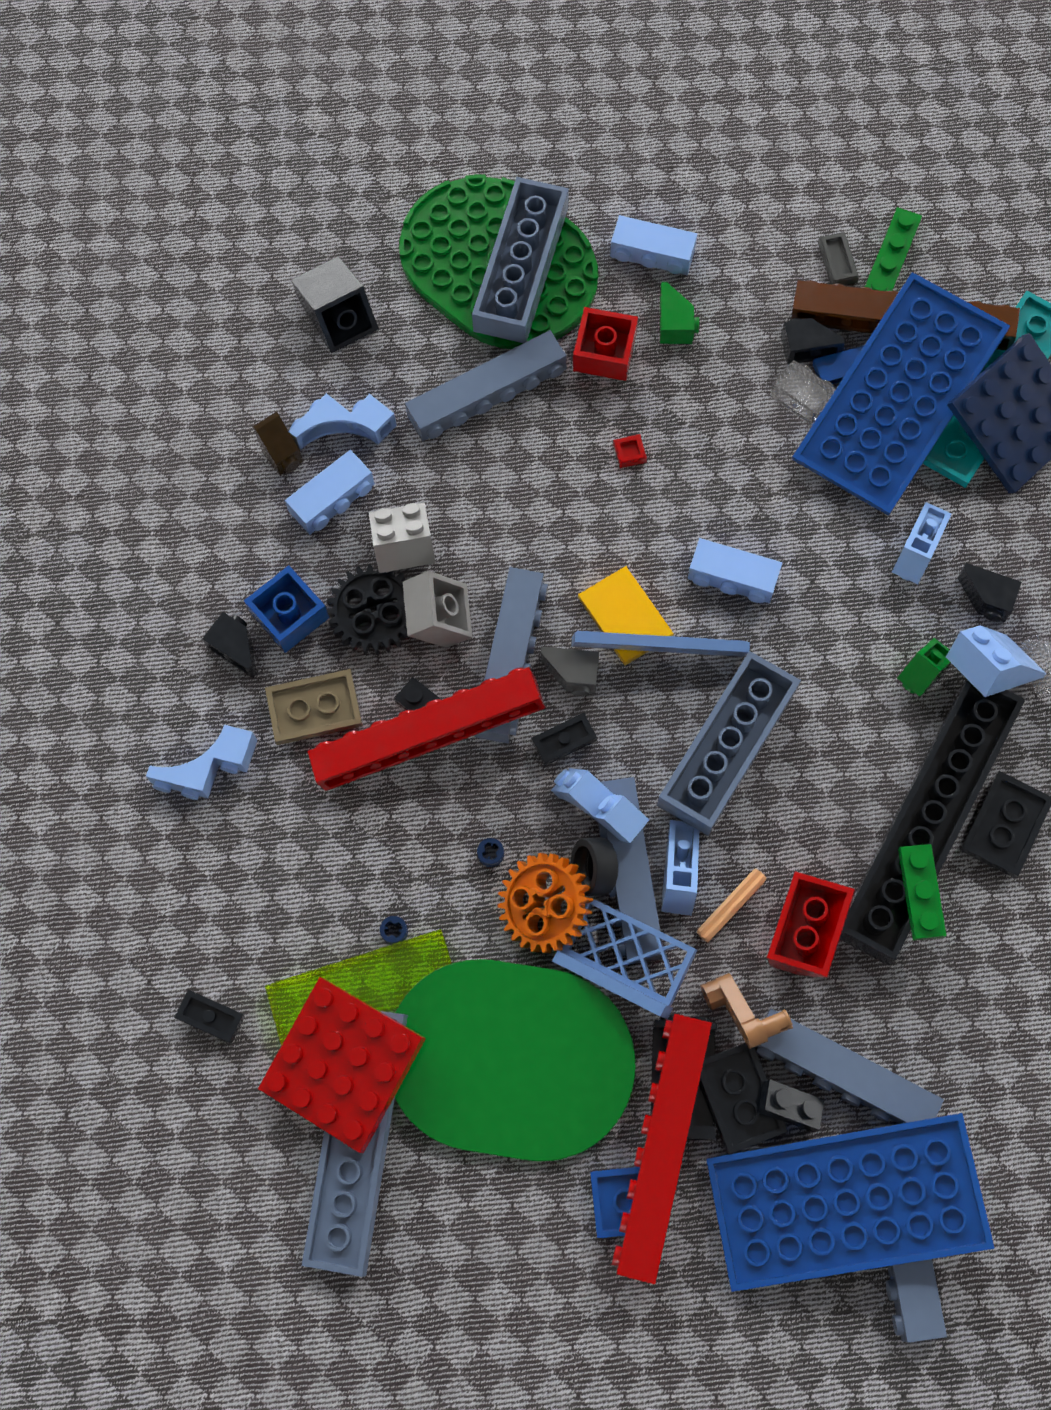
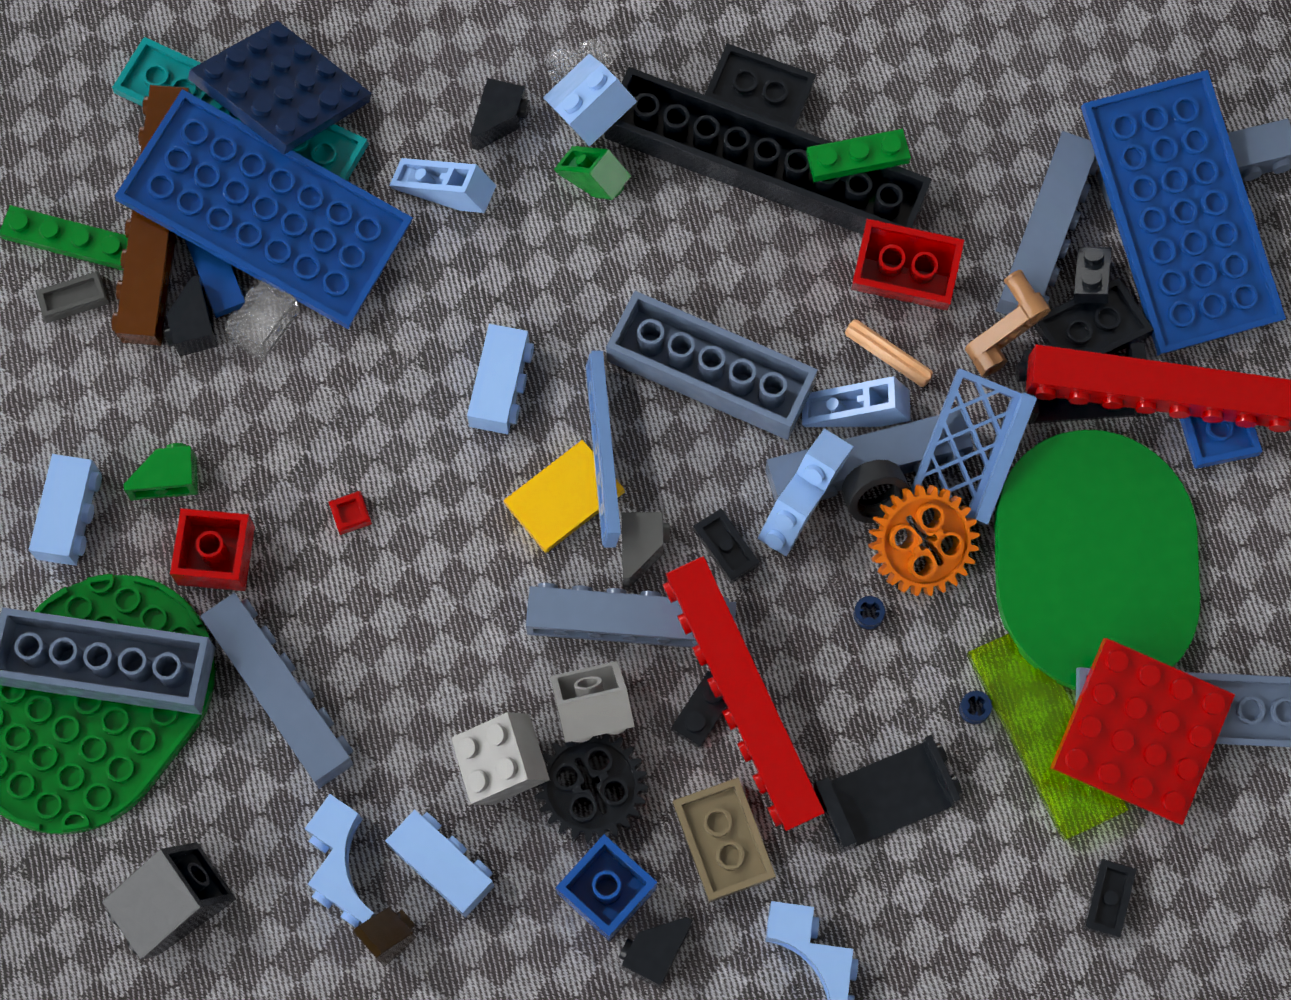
camera: 100 degrees left, 0 degrees up
(330, 842) = (888, 794): none -> black panel

